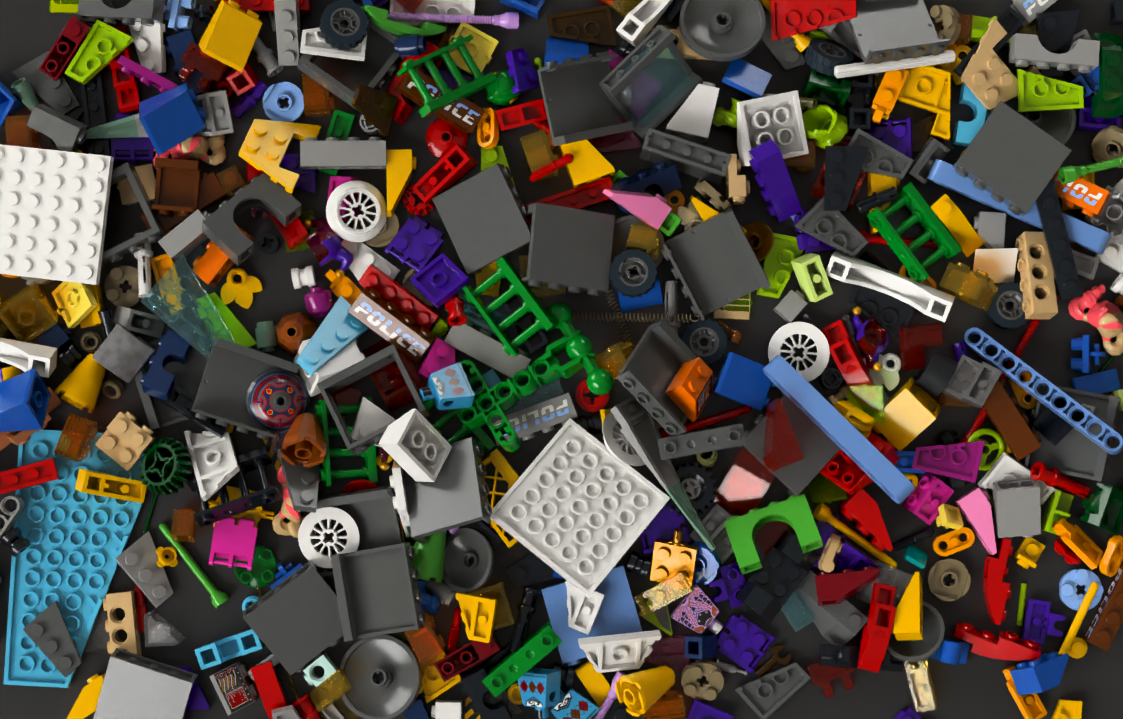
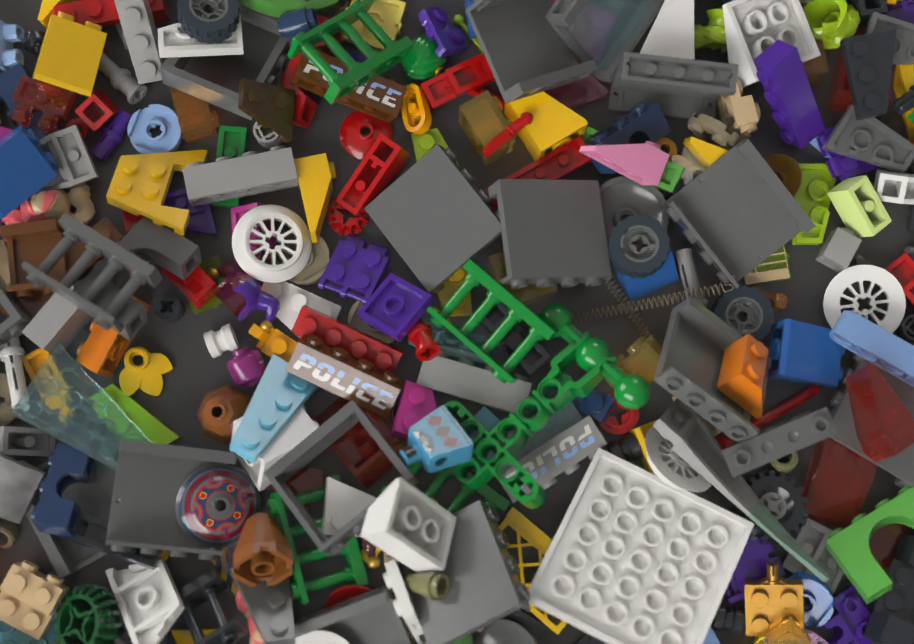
camera: 15 degrees left, 5 degrees down
(227, 190) = (96, 246): none -> dark grey fence
(266, 336) = (187, 425): sand green brick -> none
(422, 490) = (429, 584): none -> olive cone
(439, 328) = (406, 368): lime piece -> none
(576, 385) = (597, 405): none -> dark blue plate
(642, 238) = (639, 200): clear yellow brick -> none

